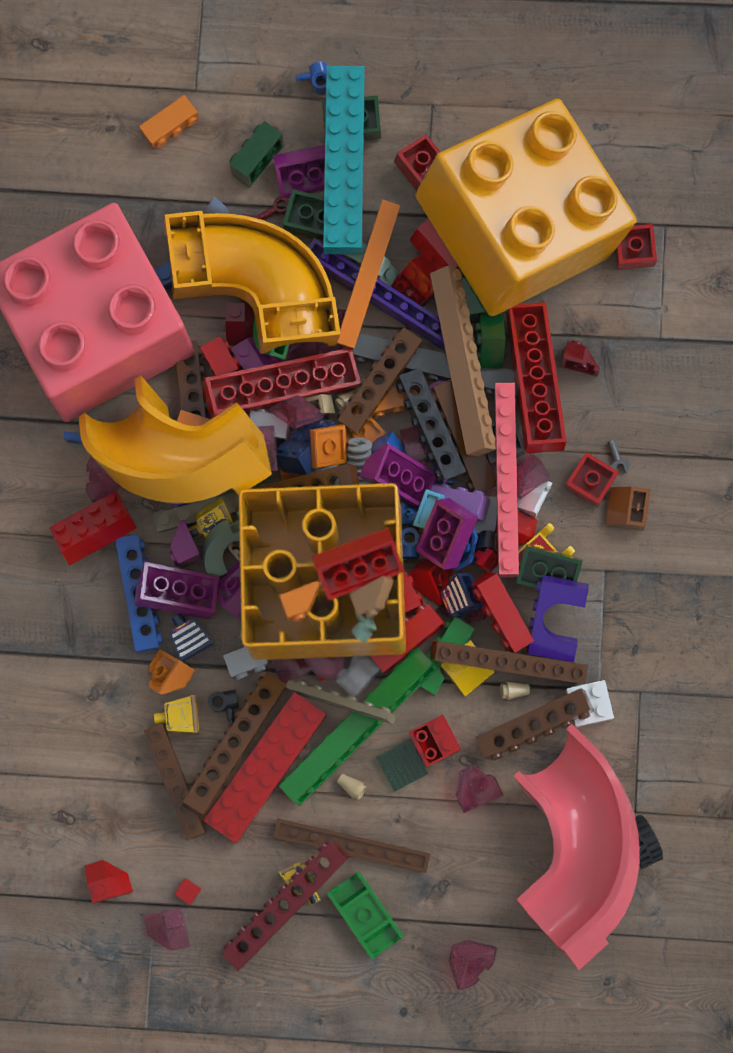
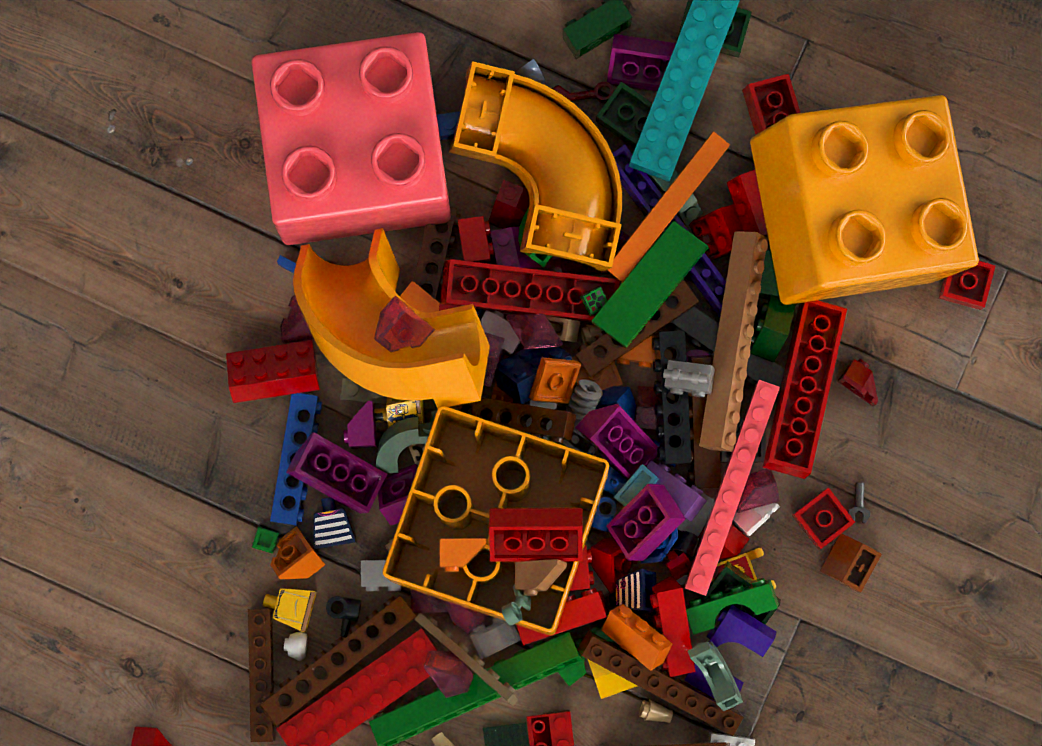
camera: 15 degrees right, 5 degrees up
(138, 670) = (265, 540): none -> green tile
(184, 442) = (401, 326): none -> clear pink slope
(195, 746) = (296, 645): none -> white cone
(330, 718) = (448, 672): none -> clear pink slope
(337, 371) = (594, 300): none -> tile
(377, 340) = (650, 284): none -> green tile
(437, 402) = (689, 378): none -> light grey brick
(474, 629) = (636, 637): none -> orange brick
(552, 636) = (717, 674): none -> sand green arch
(562, 560) = (758, 597): none -> green arch

